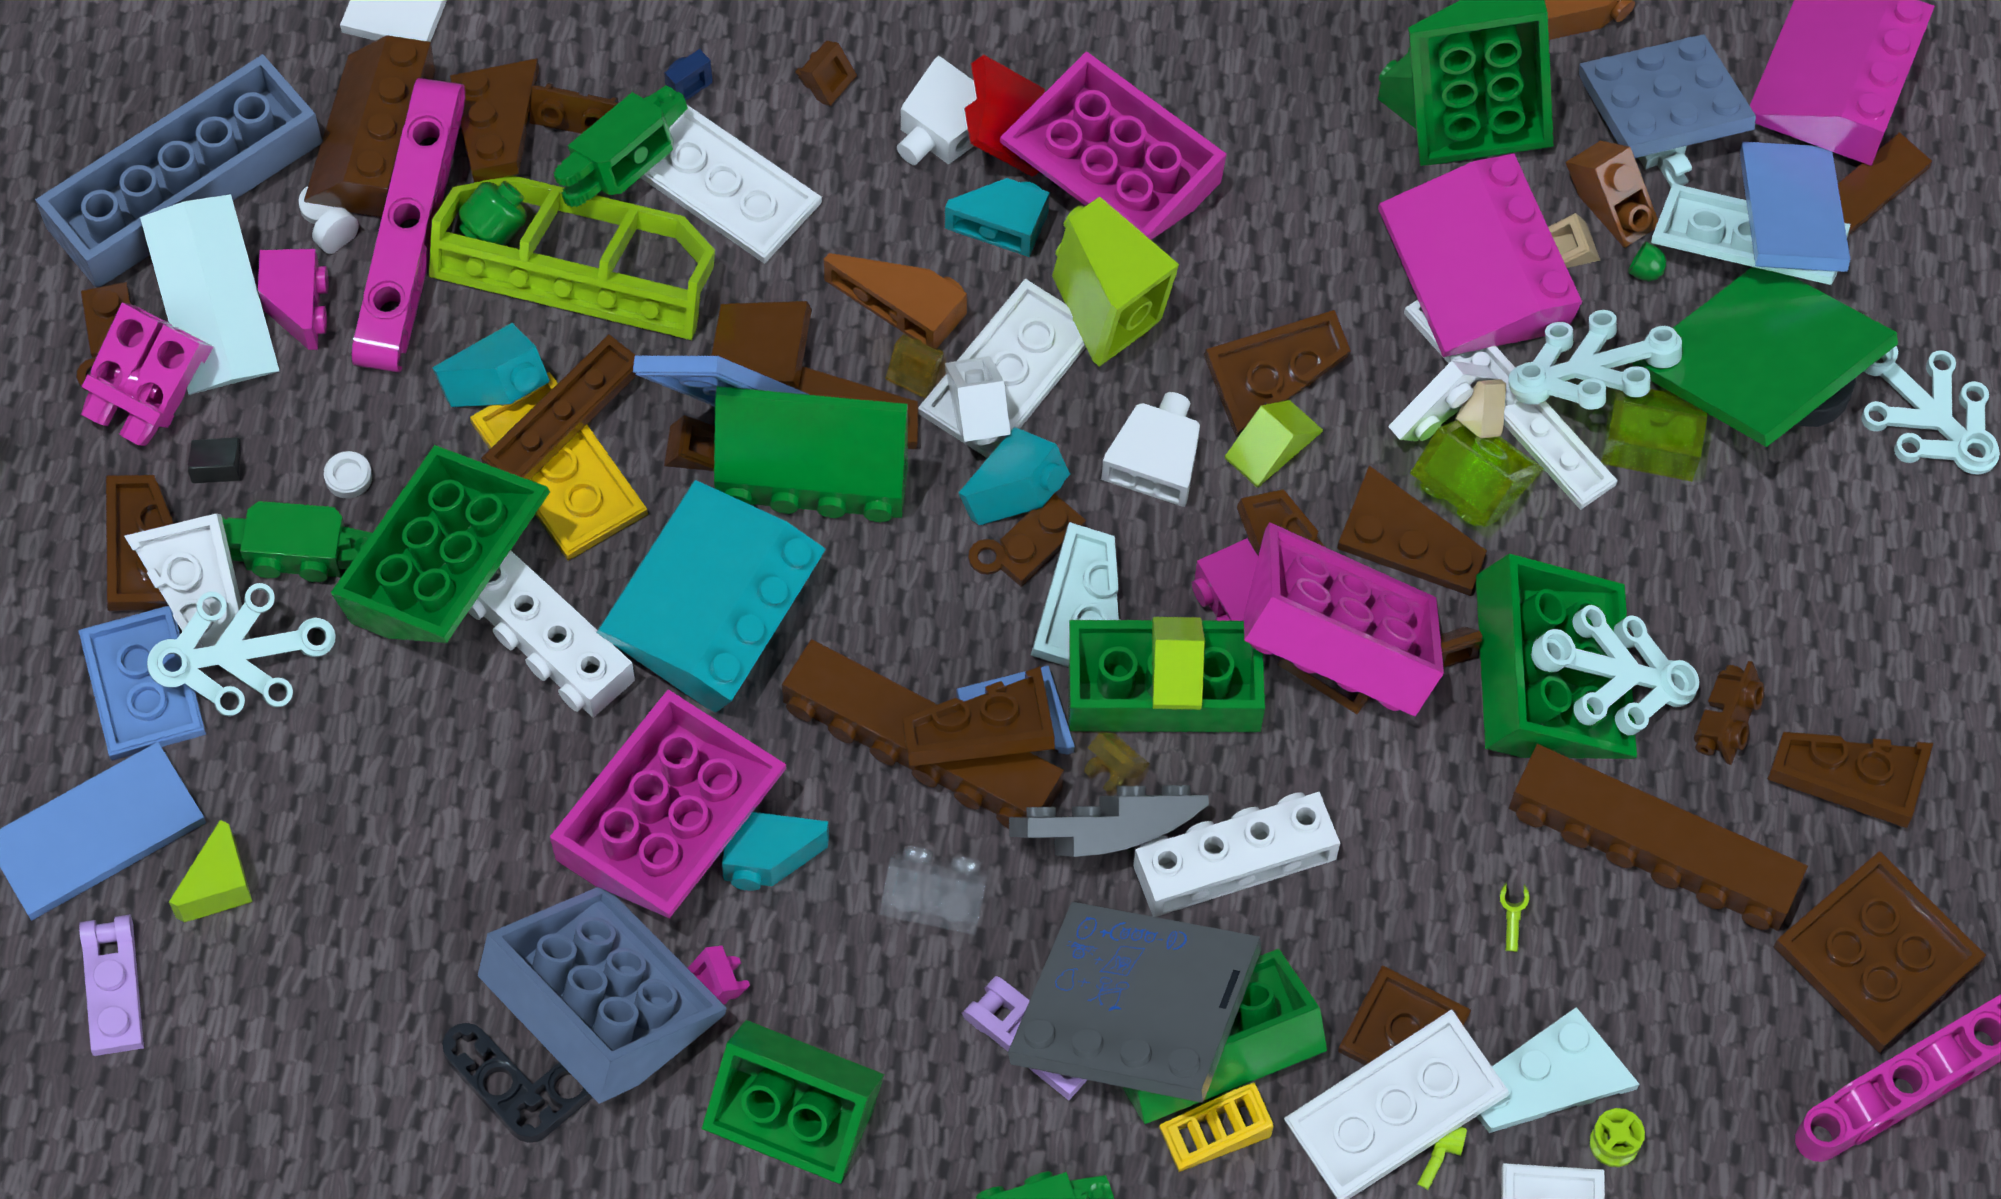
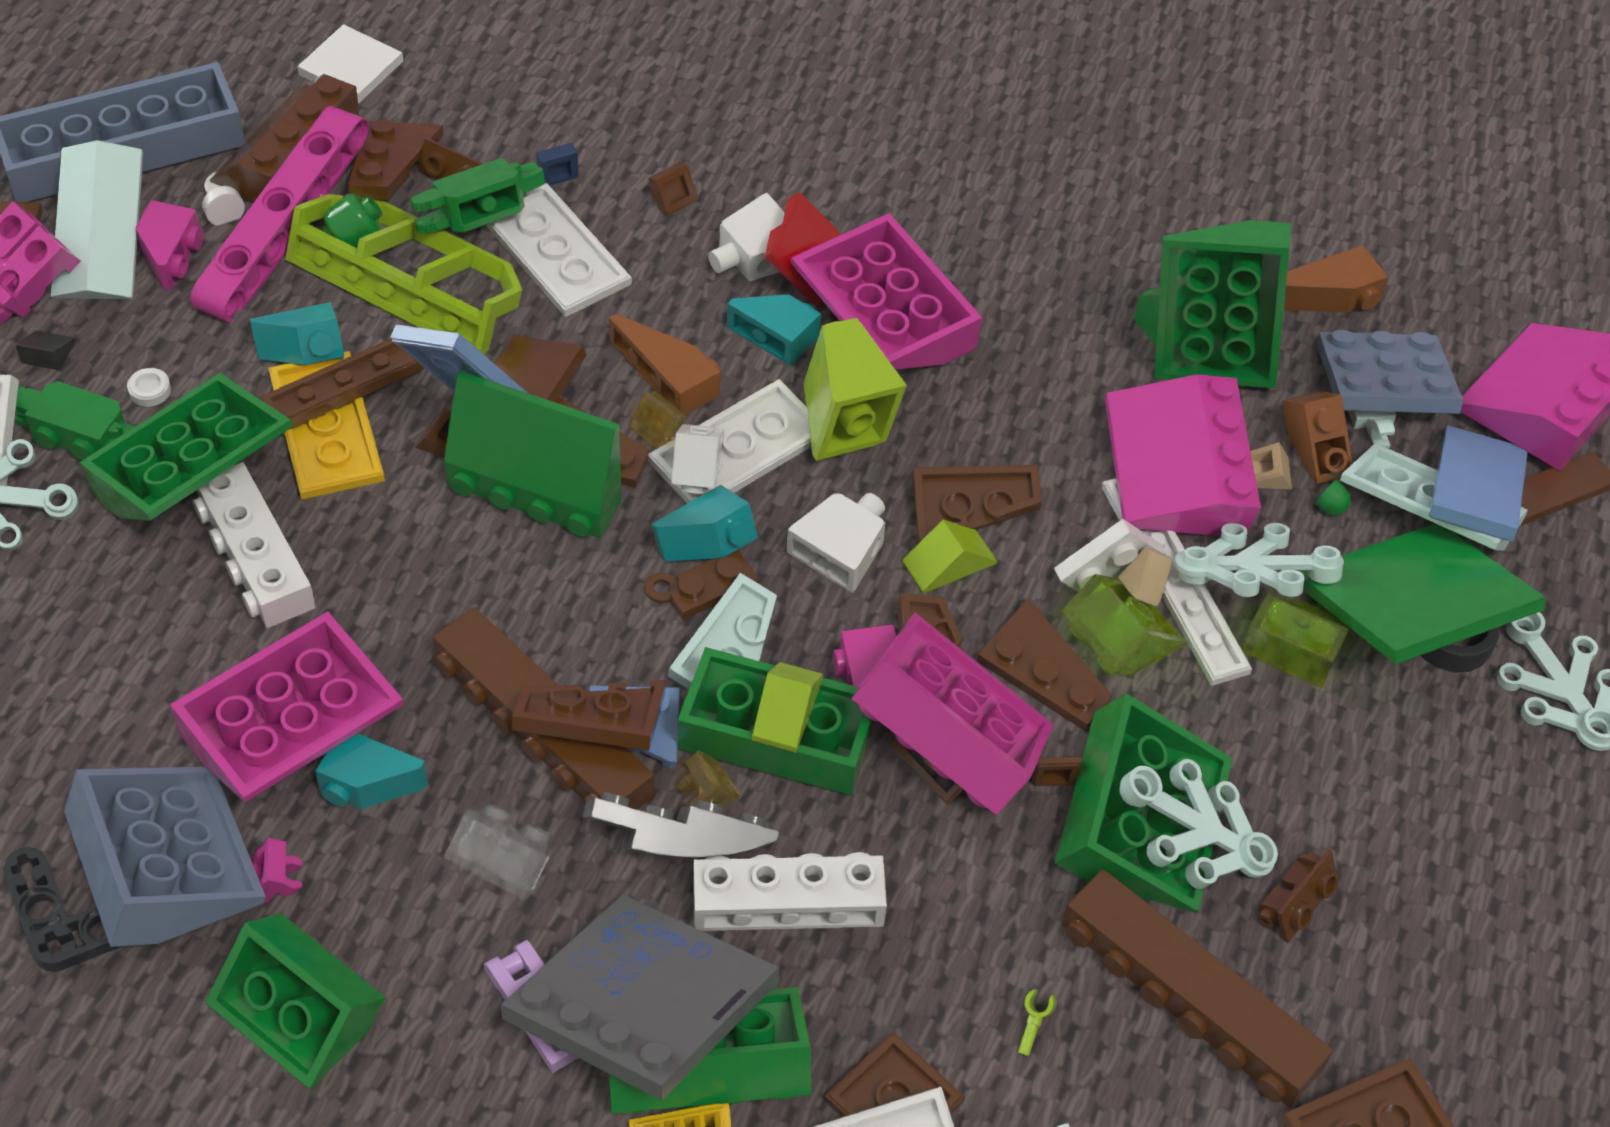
camera: 15 degrees right, 10 degrees down
(711, 594) = (402, 549): teal slope -> none
(1860, 776) = (1411, 986): reddish brown wing -> none

